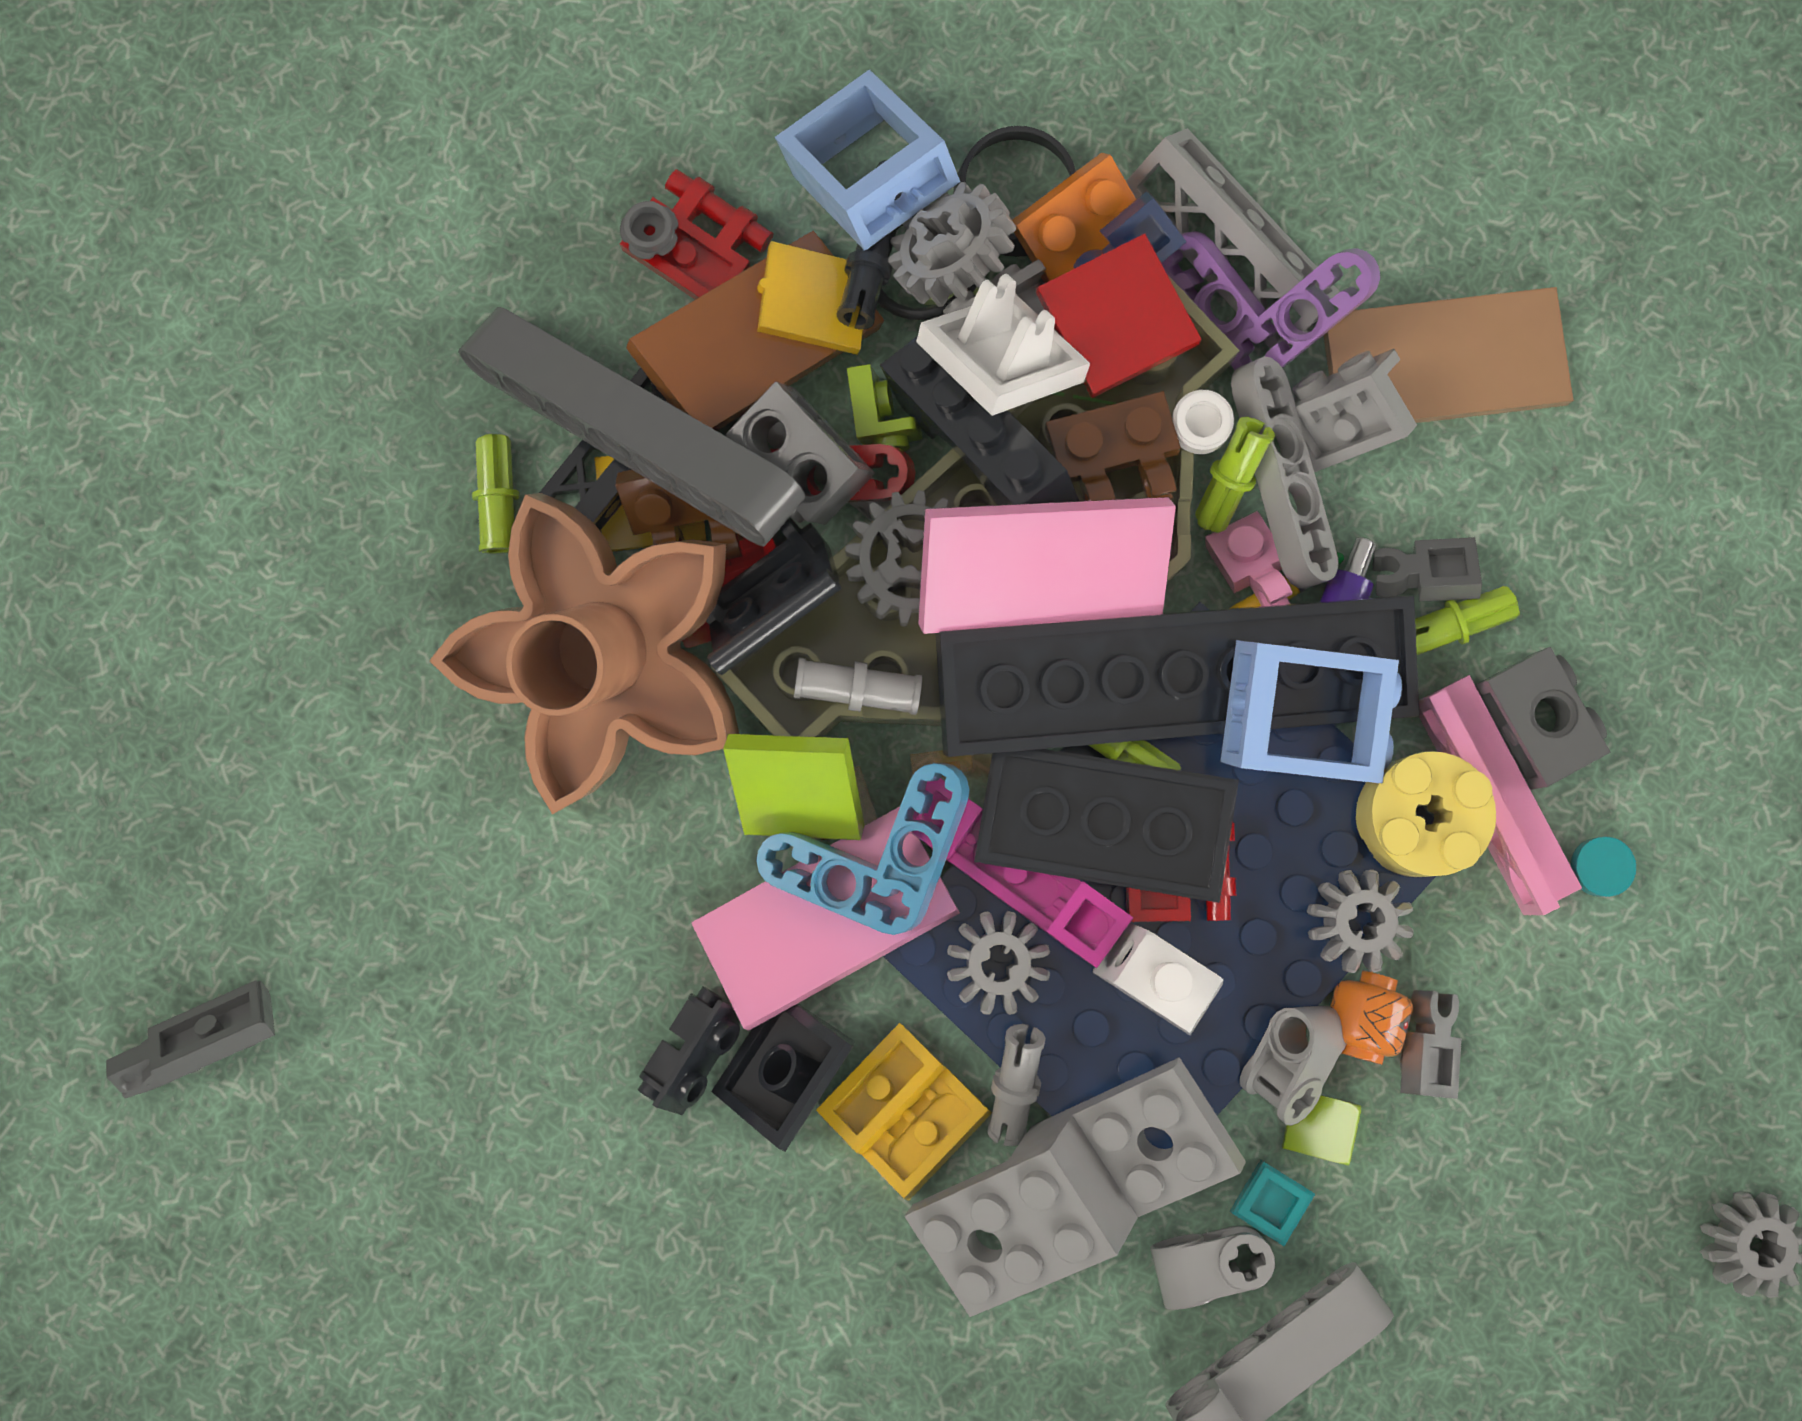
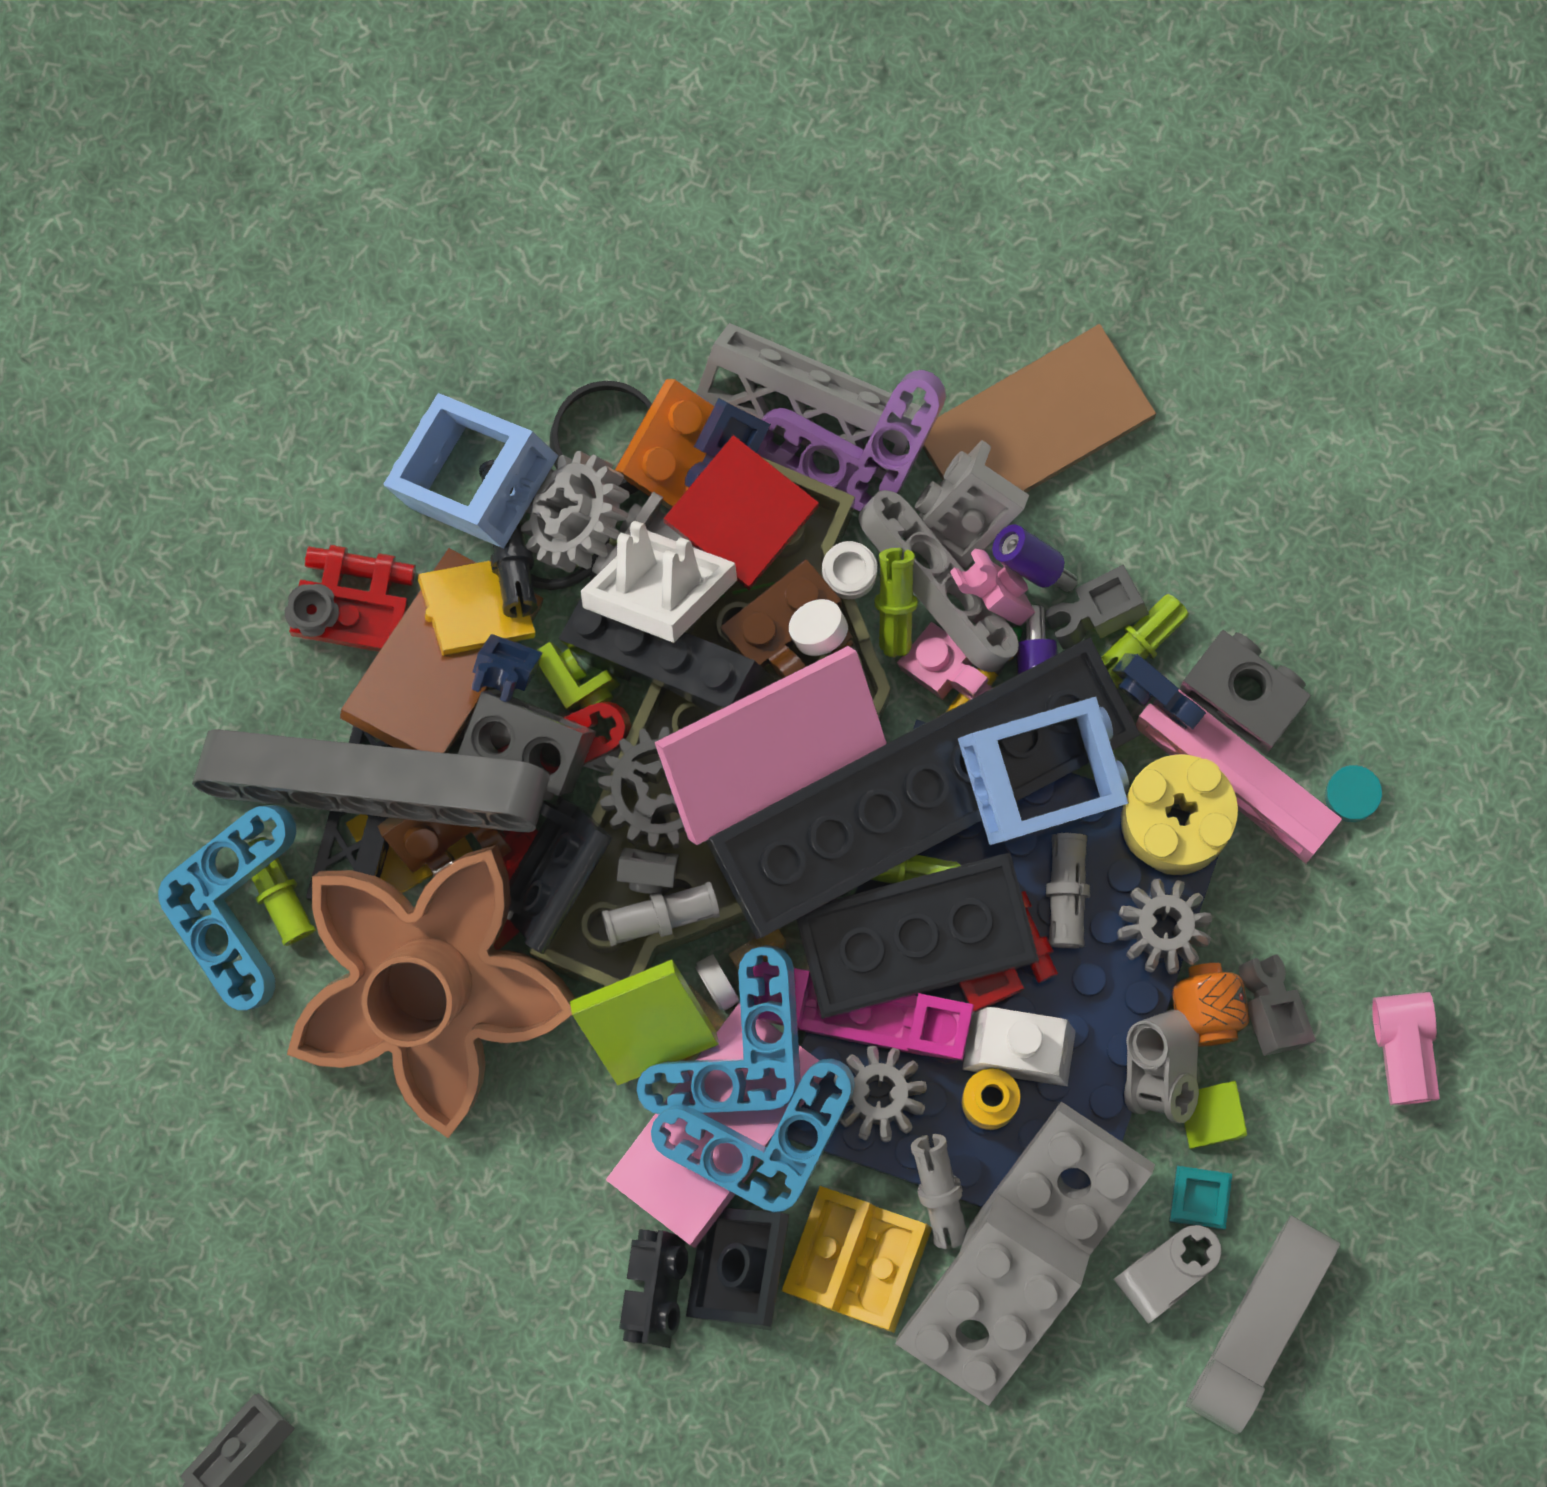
camera: 20 degrees left, 5 degrees down
(429, 468) = (210, 892): none -> dark azure beam
(812, 368) = (505, 666): none -> dark blue plate
(863, 636) = (647, 869): none -> dark grey plate
(867, 982) = (778, 1154): none -> dark azure beam
(886, 776) = (717, 983): none -> white tile
(1089, 1014) = (985, 1116): none -> yellow brick
(1146, 465) = (818, 627): none -> white tile
(1277, 840) = (1067, 890): none -> light grey pin
(1341, 505) = (997, 586): none -> bright pink plate
(1388, 490) = (1032, 558): none -> dark purple piece
(1450, 669) = (1146, 685): none -> dark blue plate
(1552, 1132) = (1406, 1033): none -> bright pink piece

